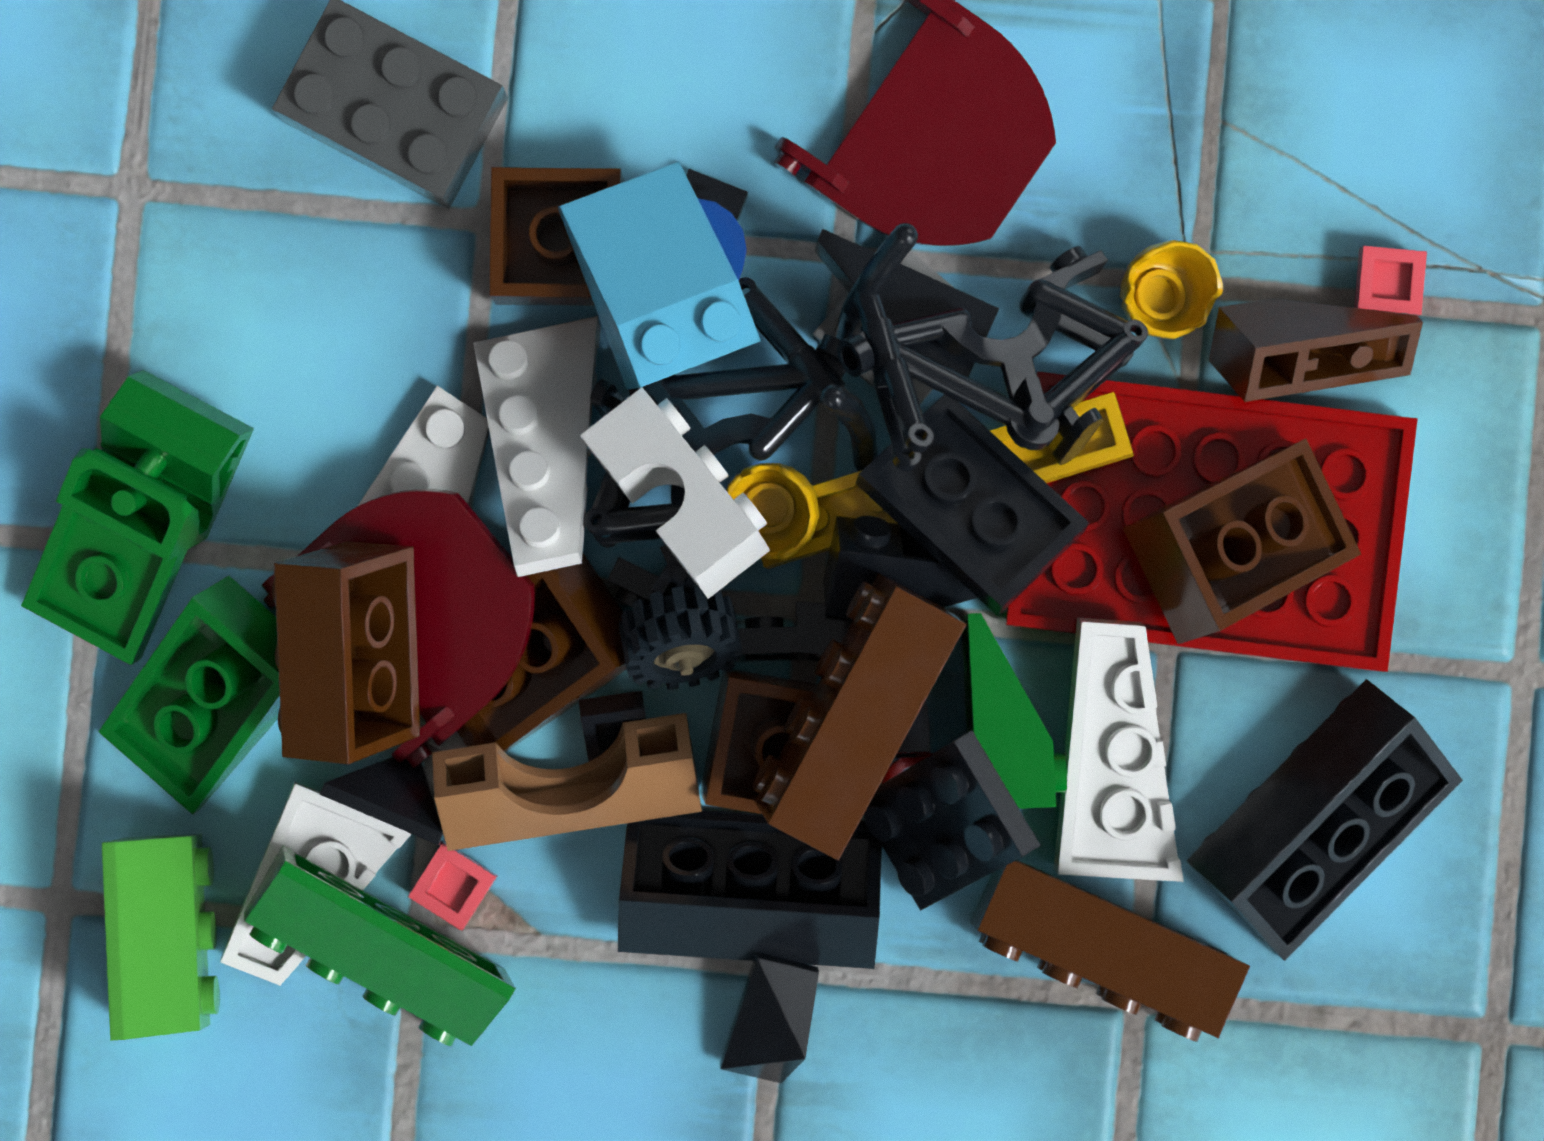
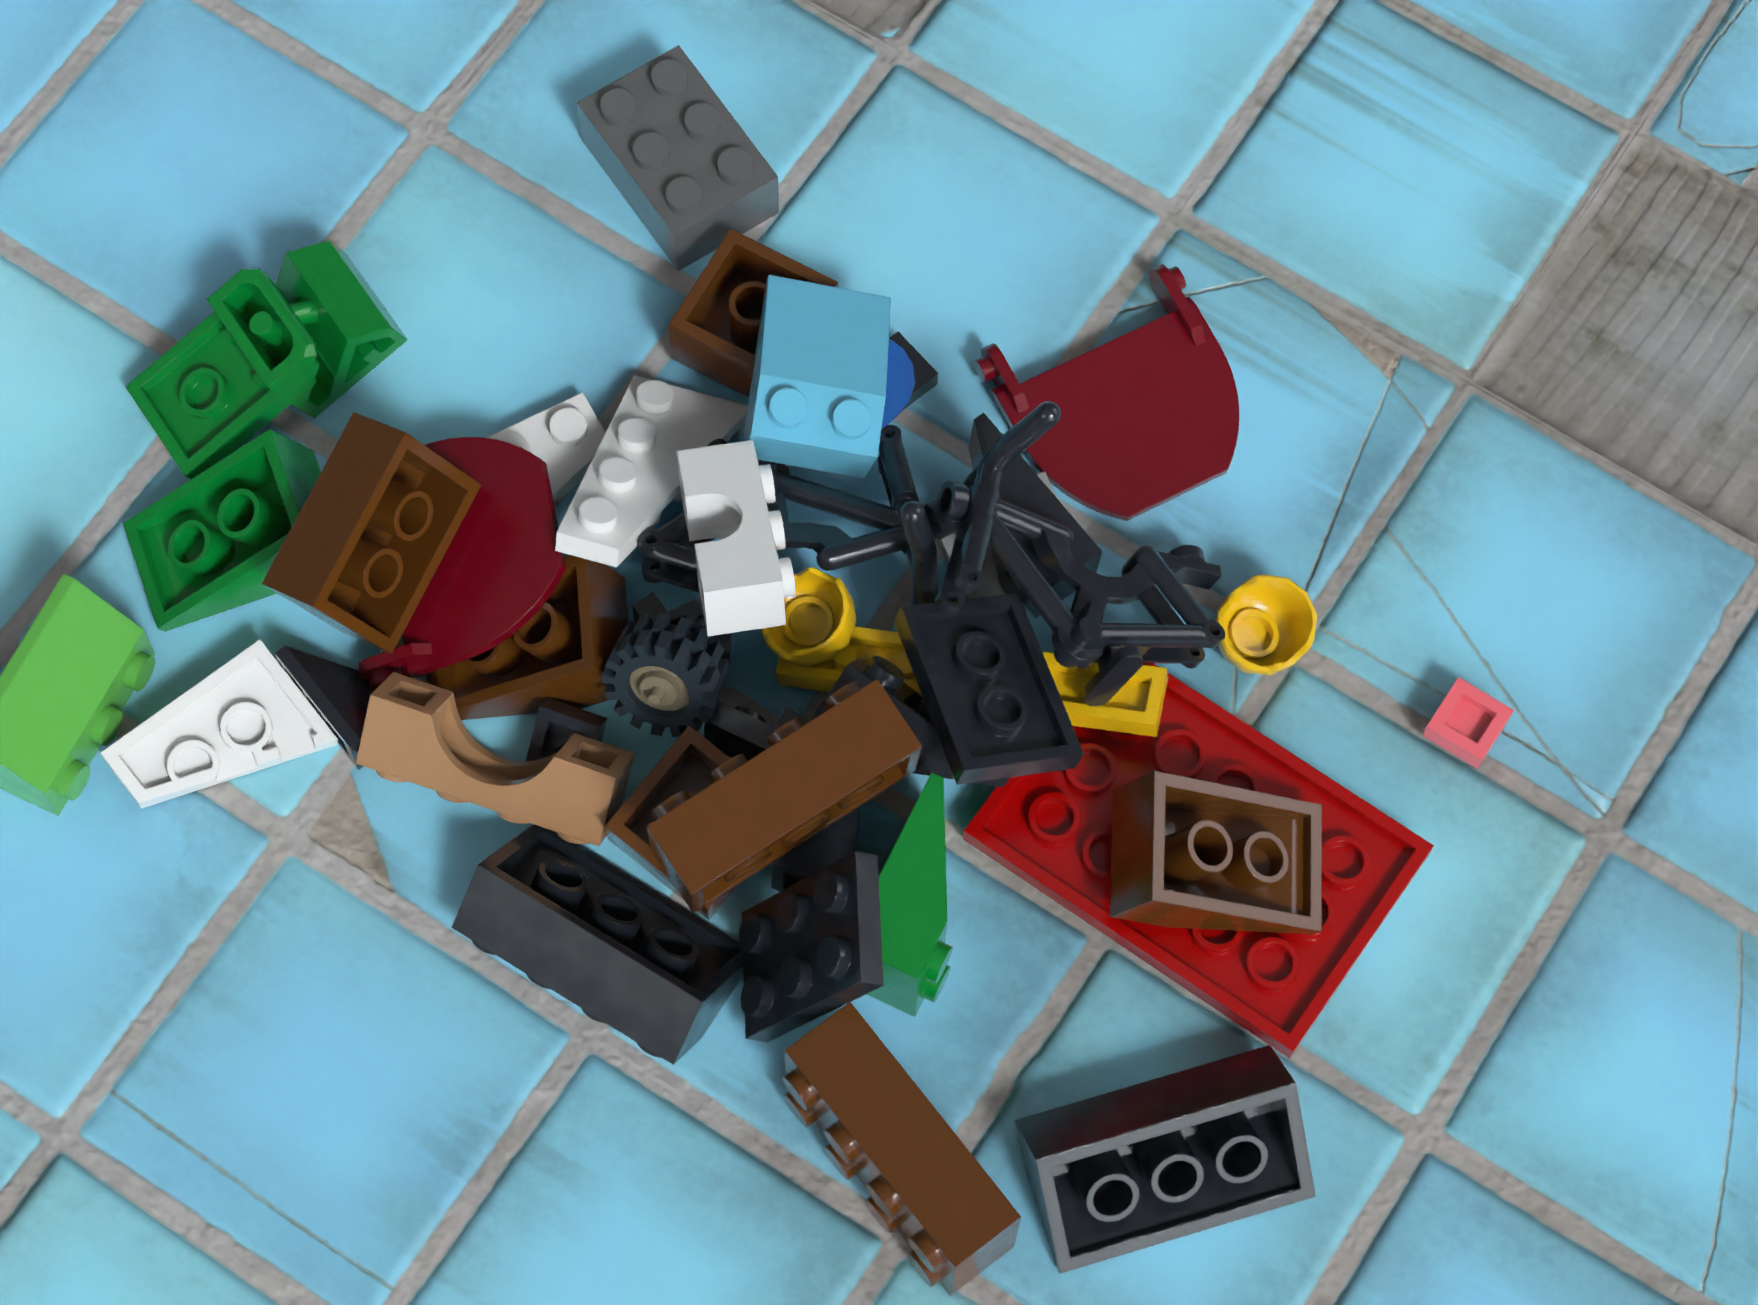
camera: 25 degrees right, 20 degrees down
(377, 948) = (241, 802): green slope -> none
(452, 886) = (342, 802): coral plate -> none
(772, 1019) = (552, 1061): black slope -> none
(1117, 796) = (988, 1016): white wing -> none
(1306, 347) = (1369, 736): slope -> none

